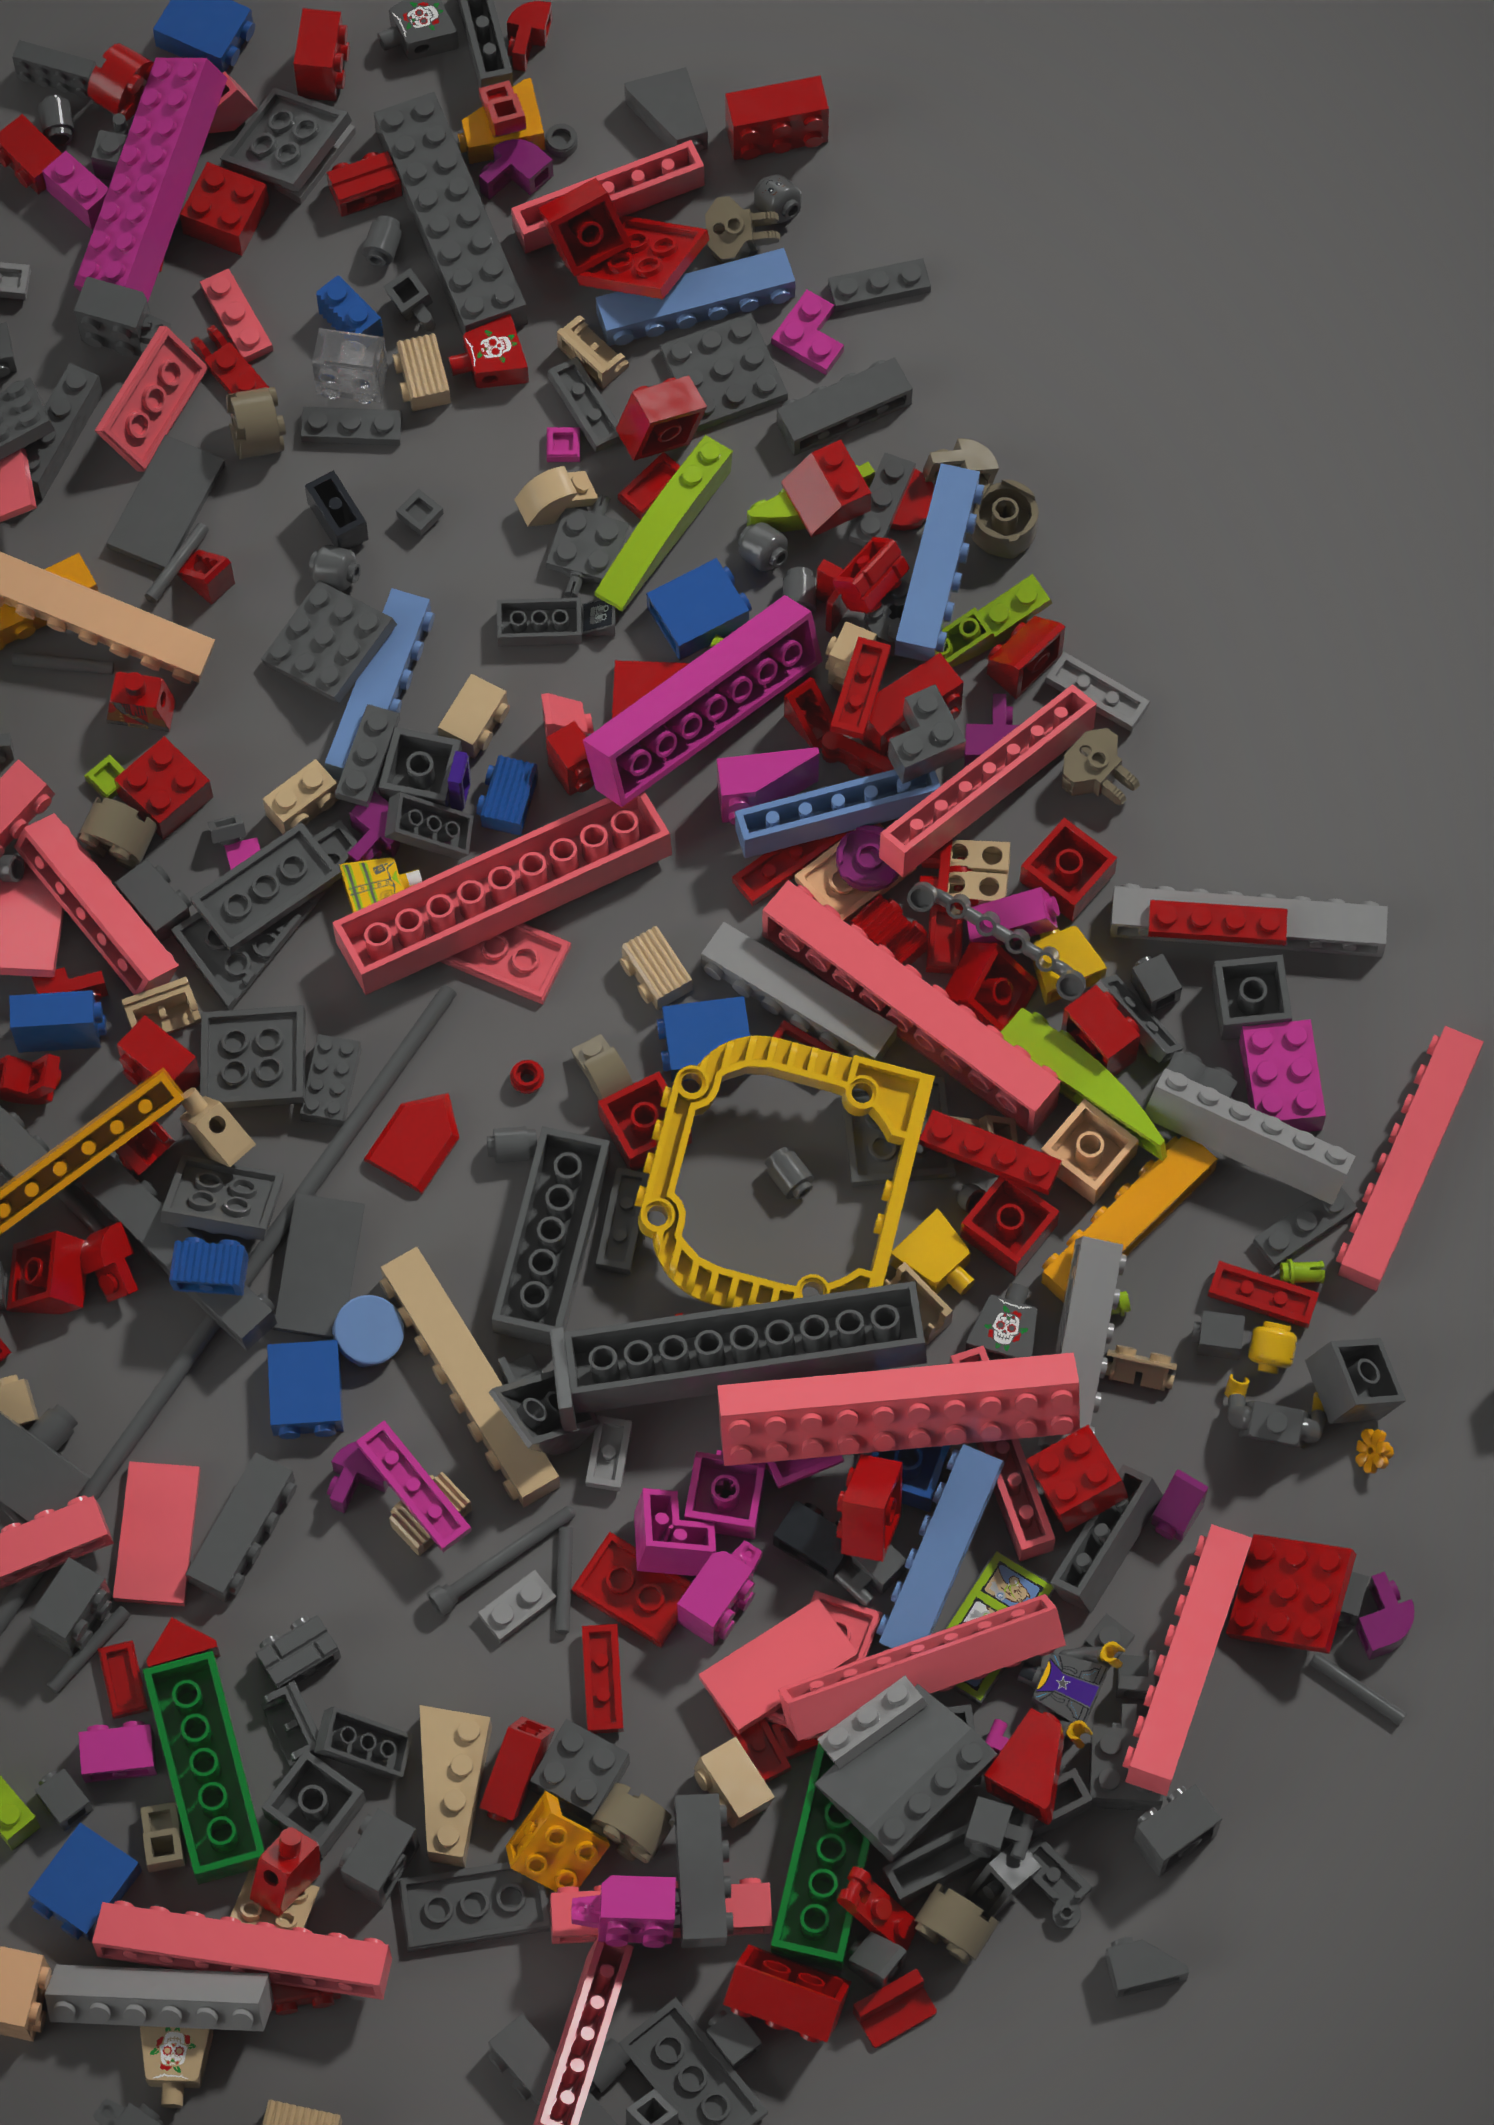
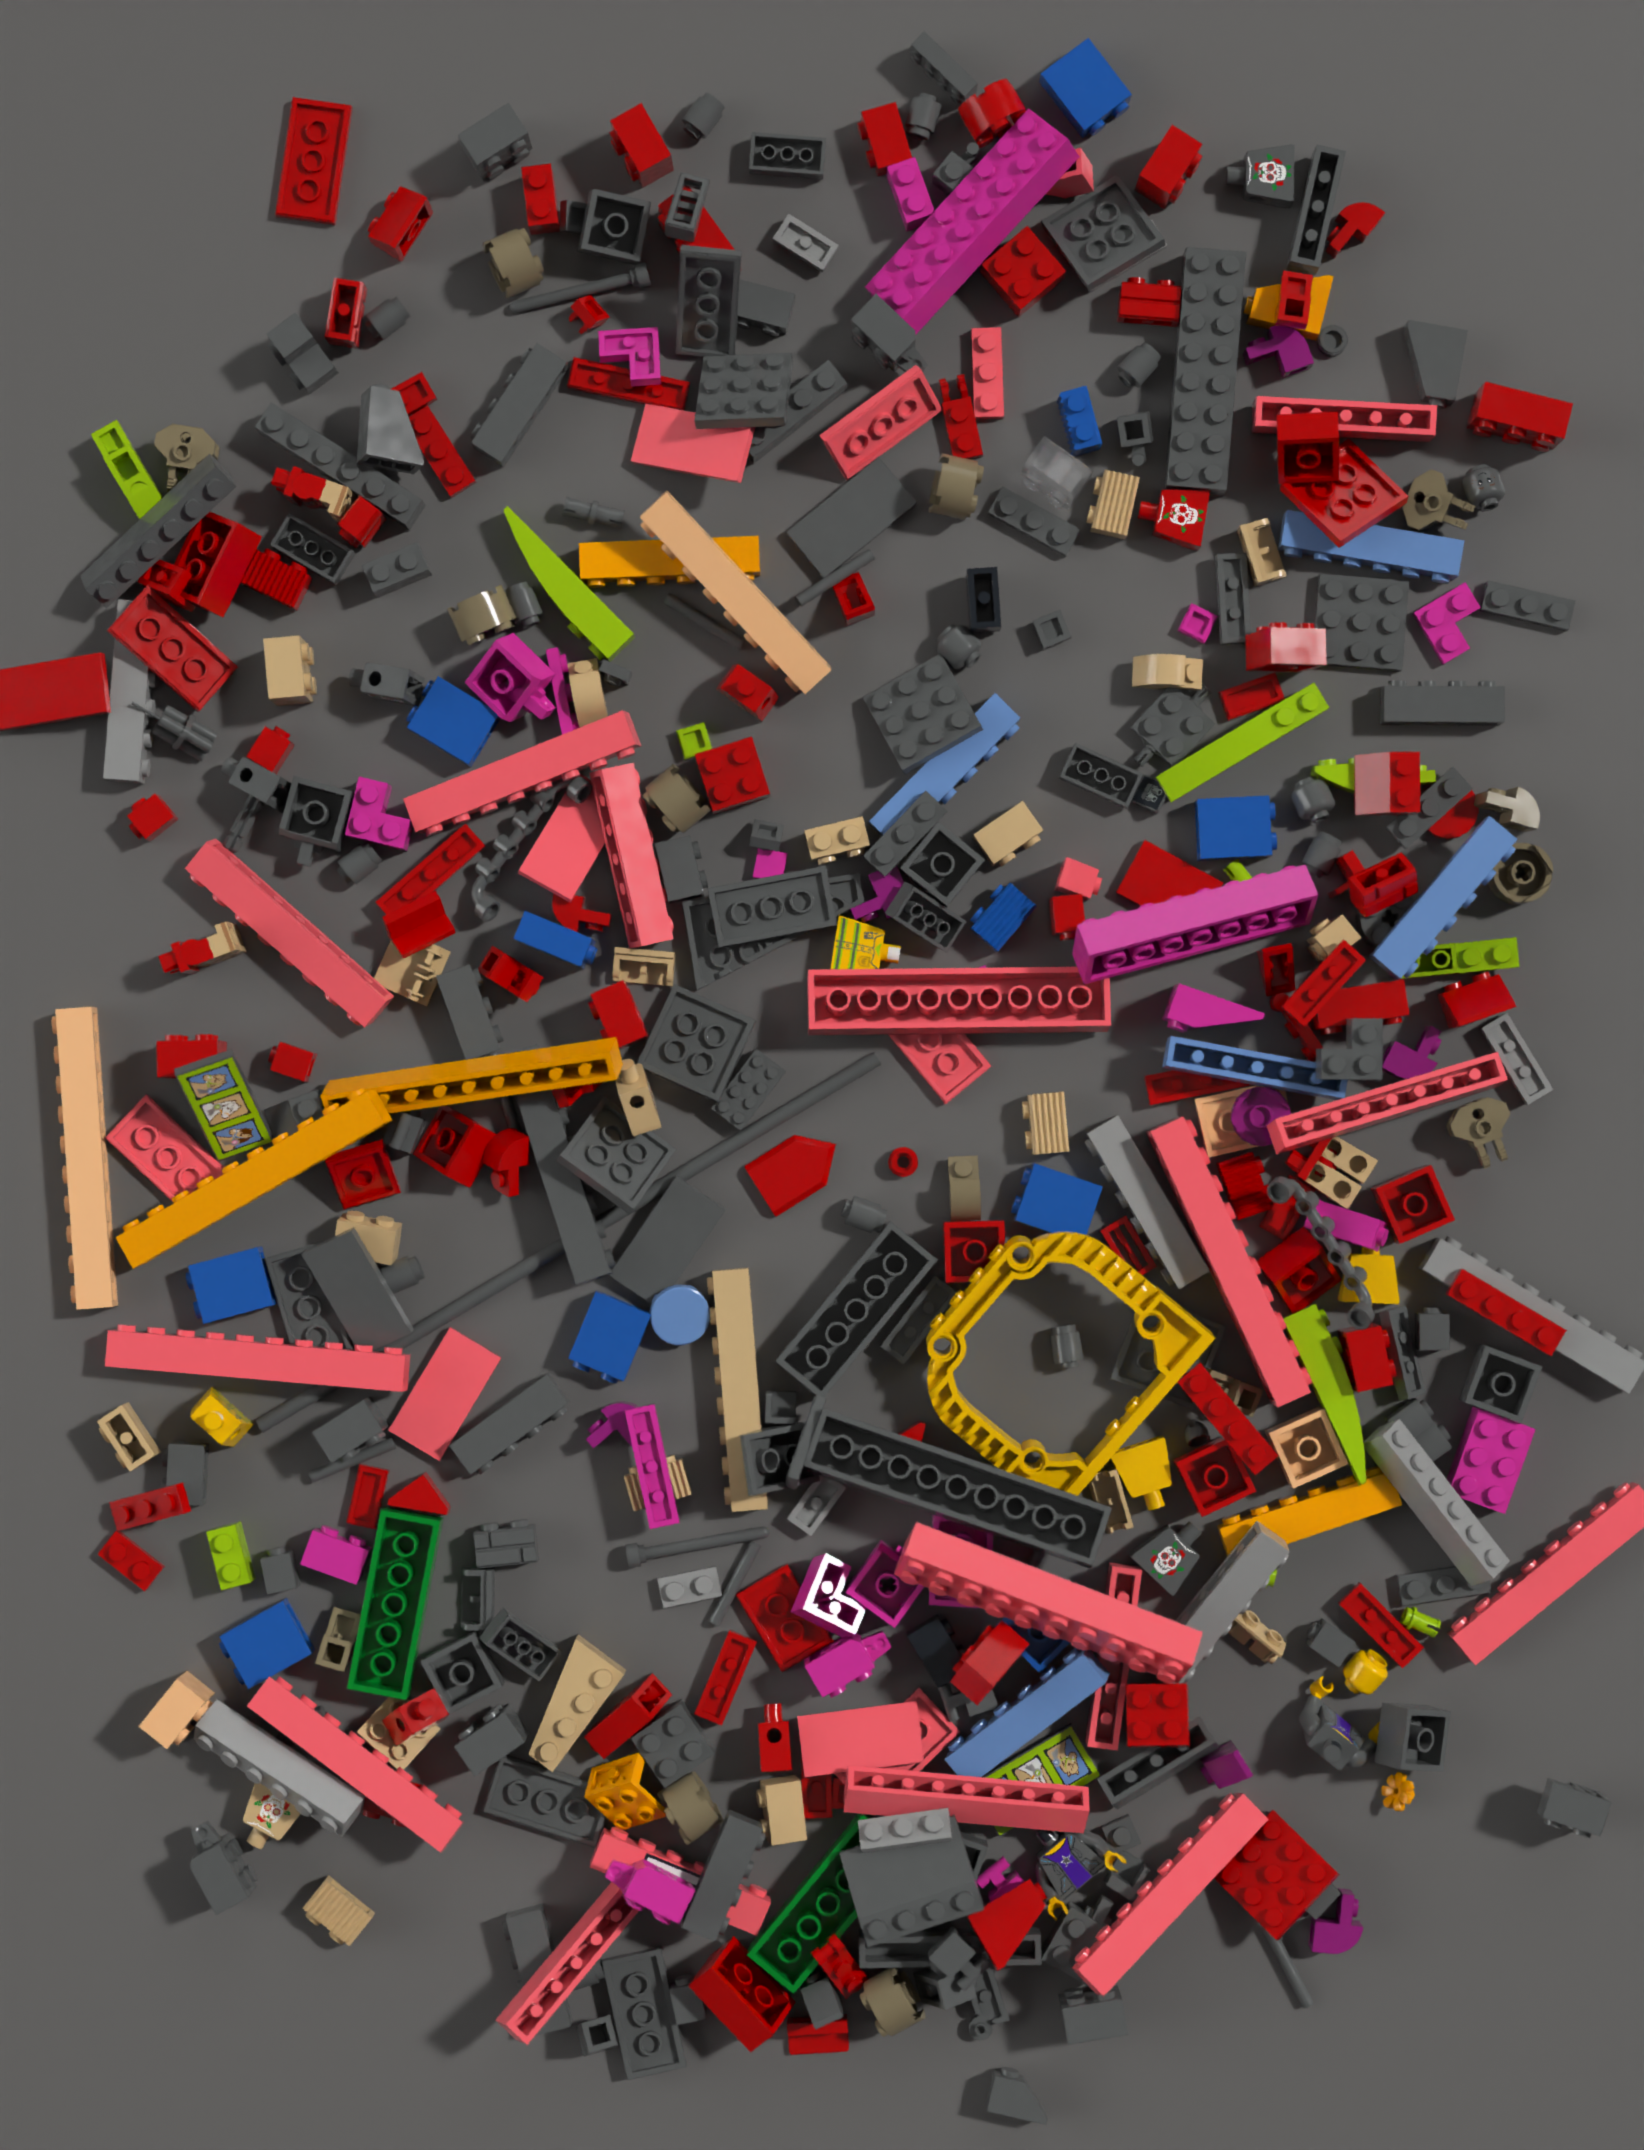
camera: 25 degrees right, 20 degrees up
(209, 1267) = (576, 1217): blue brick -> none
(459, 780) = (968, 890): dark purple tile -> none
(690, 1716) = (777, 1755): none -> red torso

